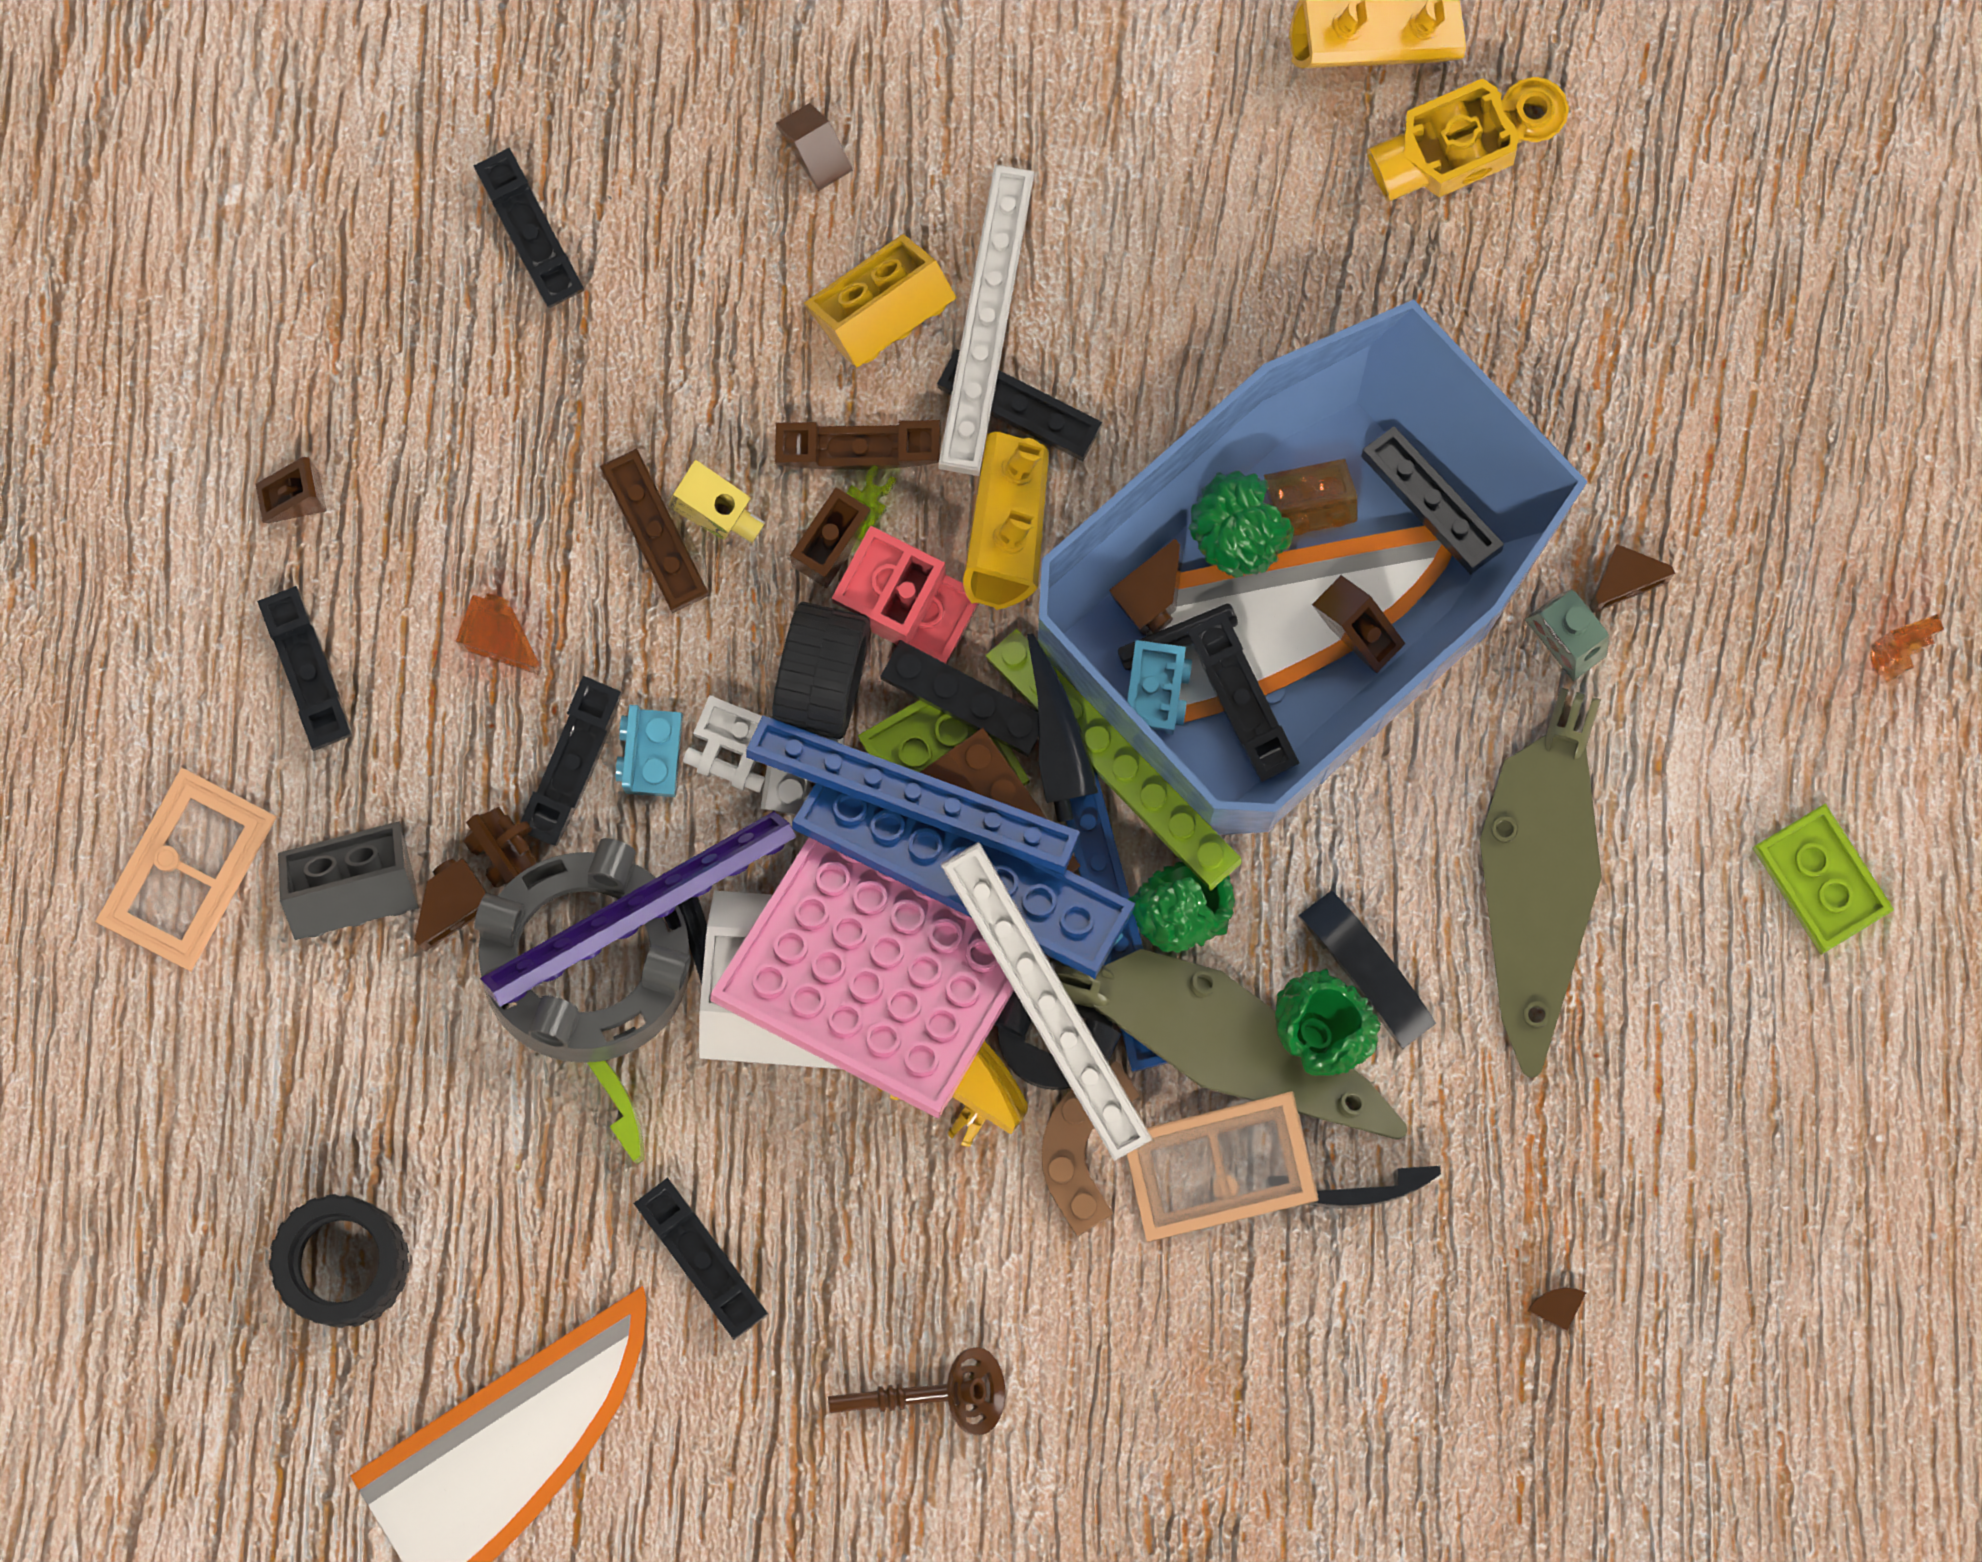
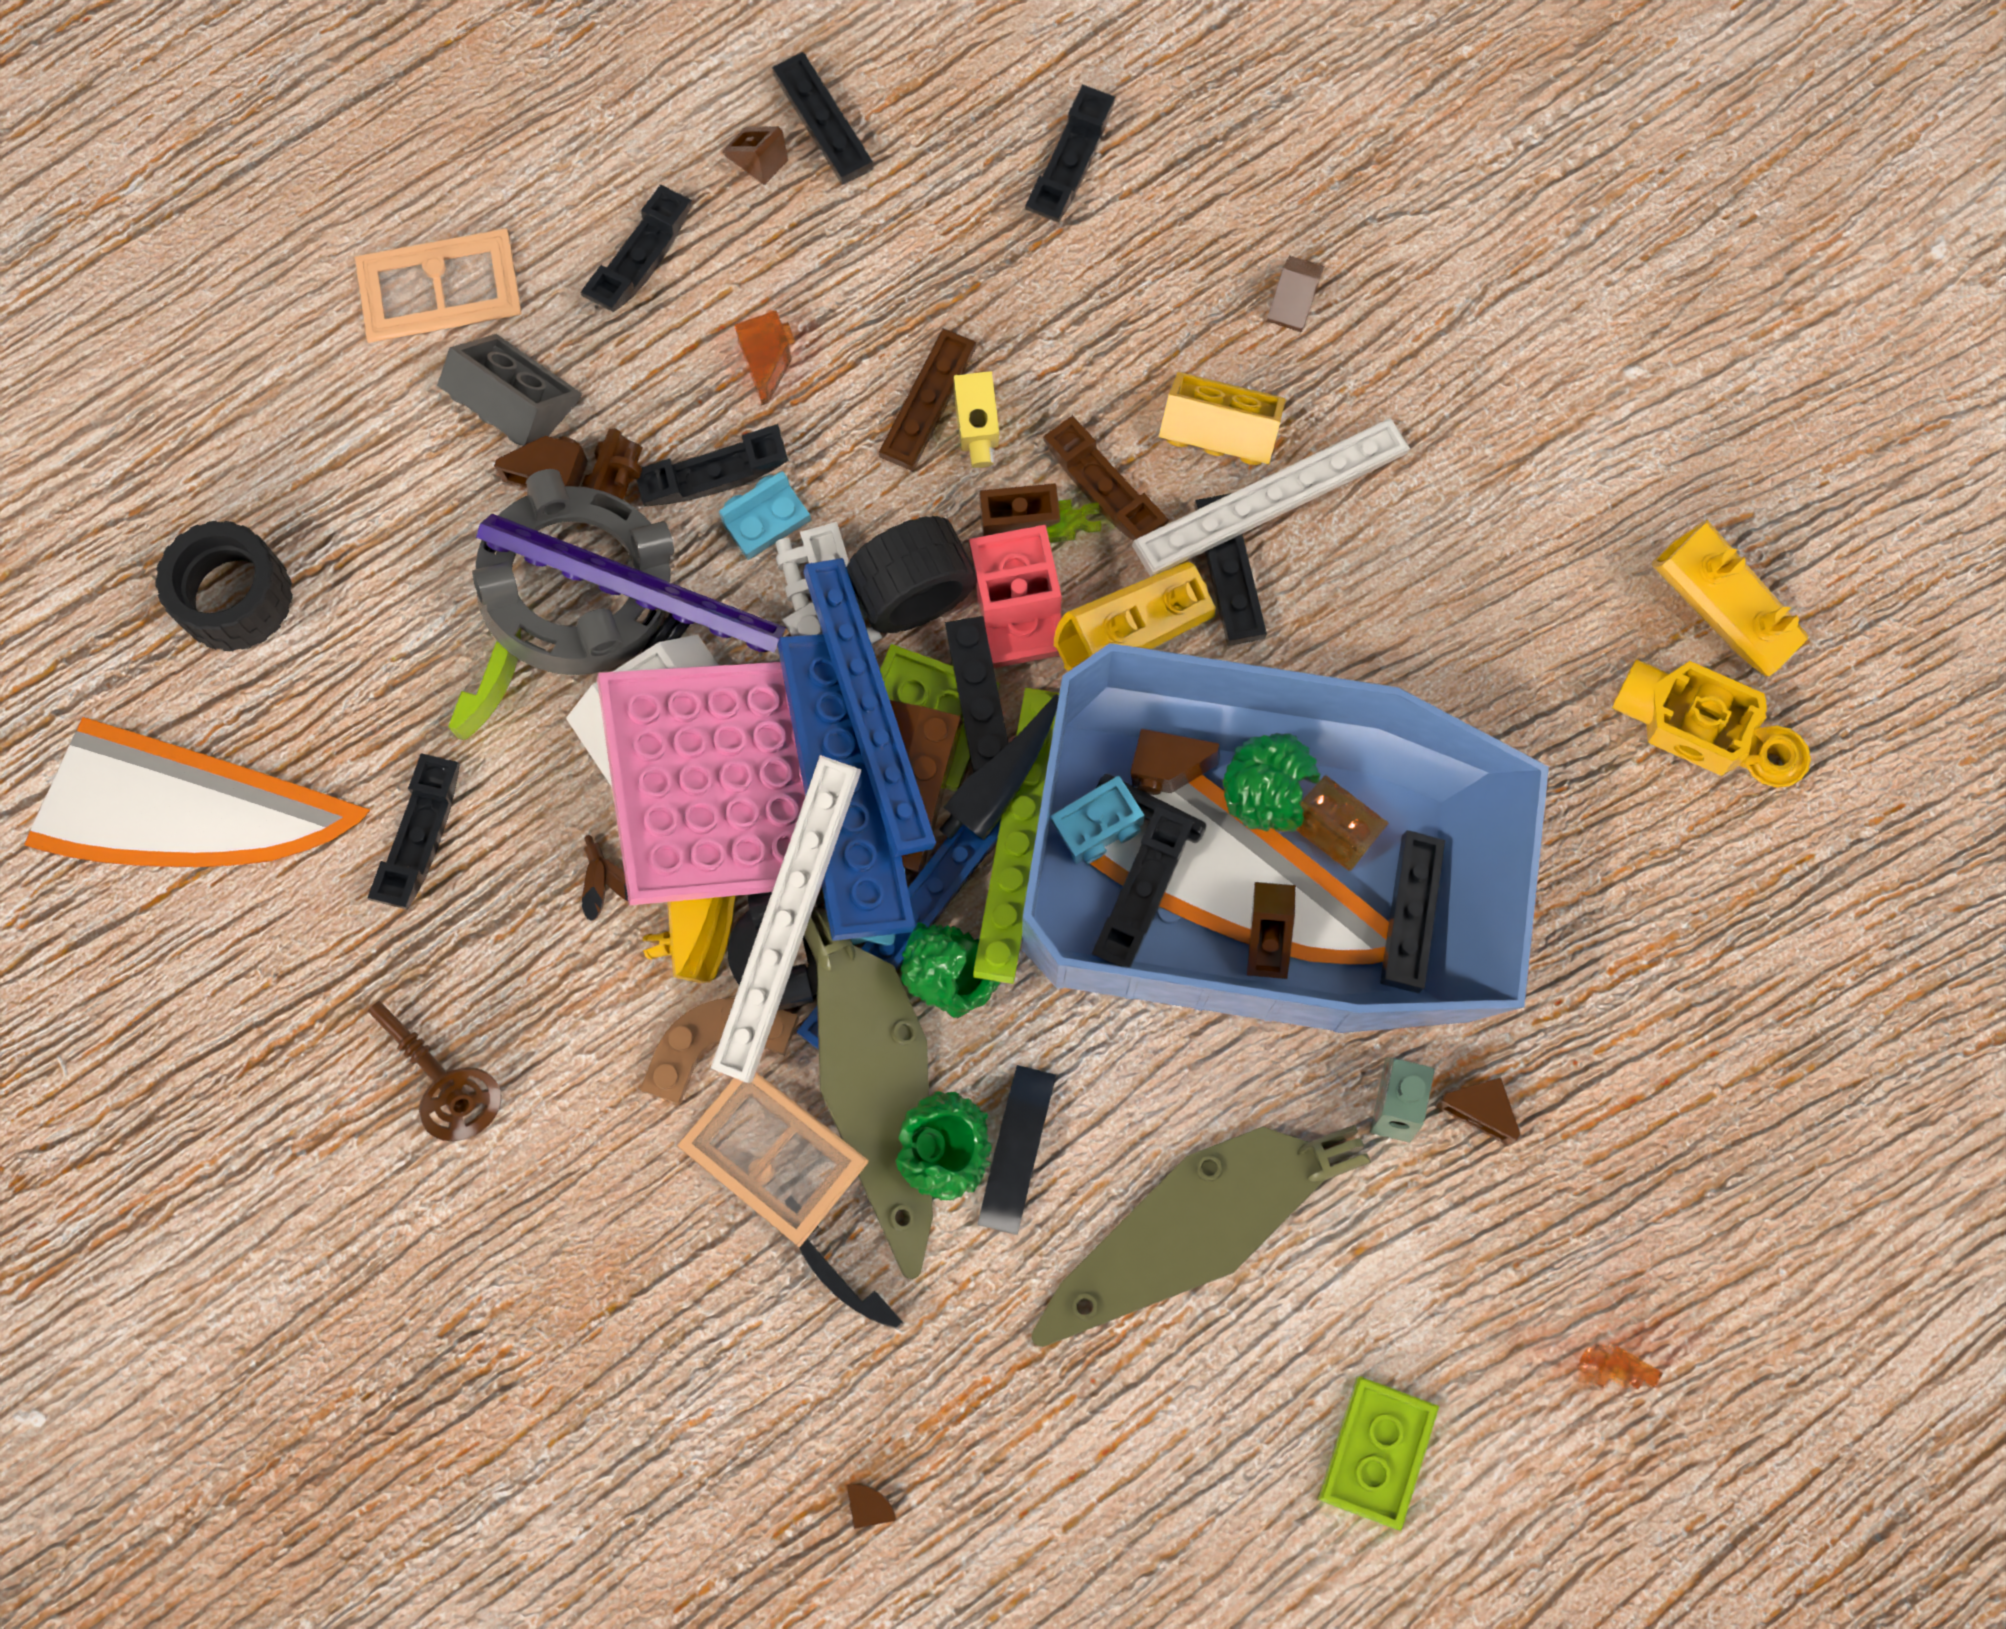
camera: 50 degrees right, 5 degrees down
(308, 411) = (822, 118): none -> black plate
(860, 1133) = (598, 875): none -> reddish brown piece

